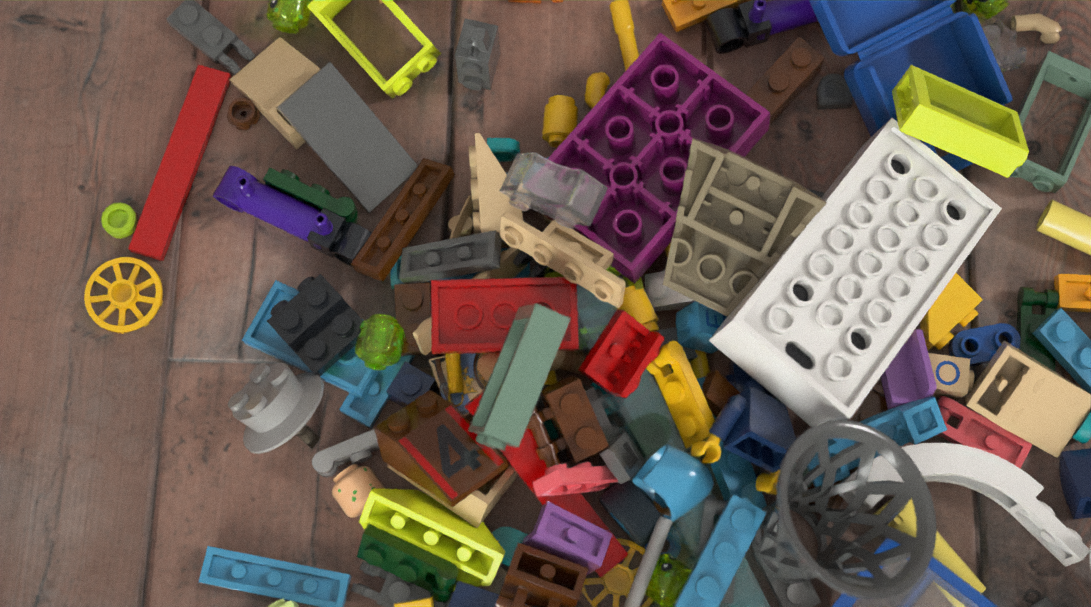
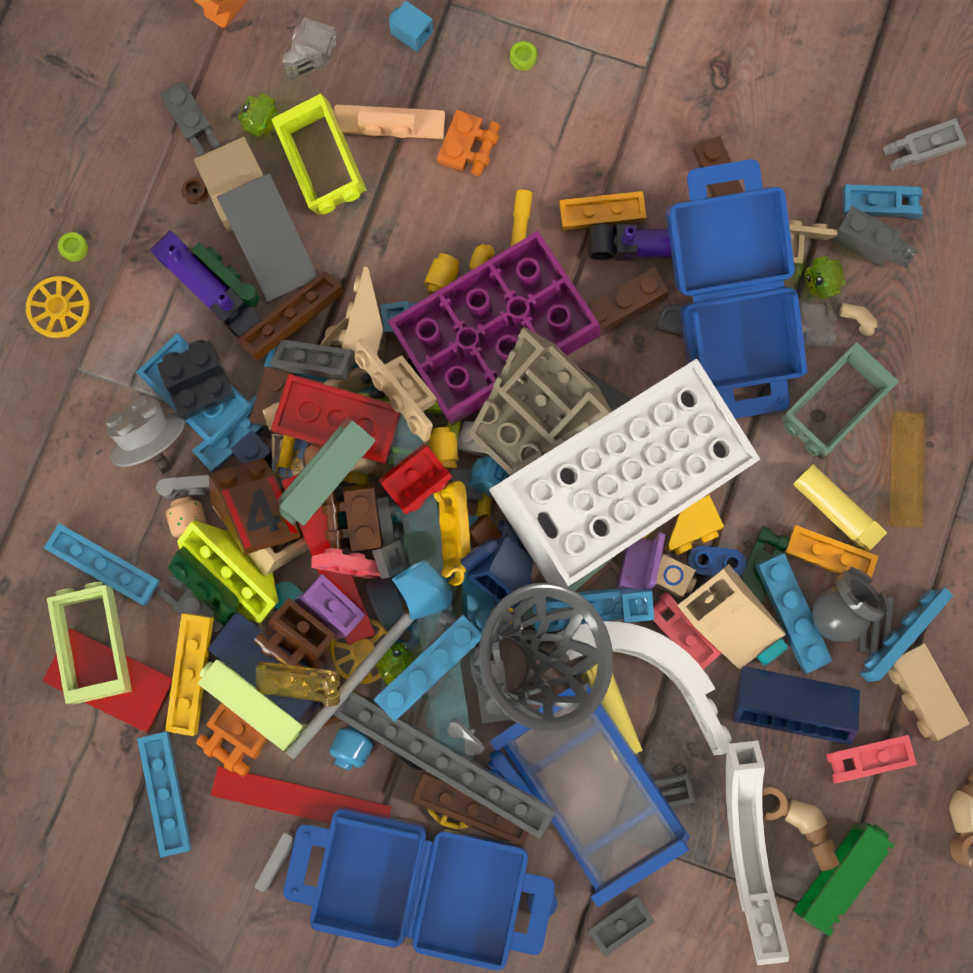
camera: 20 degrees right, 5 degrees up
(180, 163) = (134, 214): red tile -> none
(379, 341) = (236, 408): clear neon green head -> none
(477, 54) = (392, 201): dark grey hinge -> none
(504, 148) = (388, 284): teal tile -> none
(553, 190) = (406, 333): clear brick -> none
(959, 121) = (743, 389): neon yellow window -> none

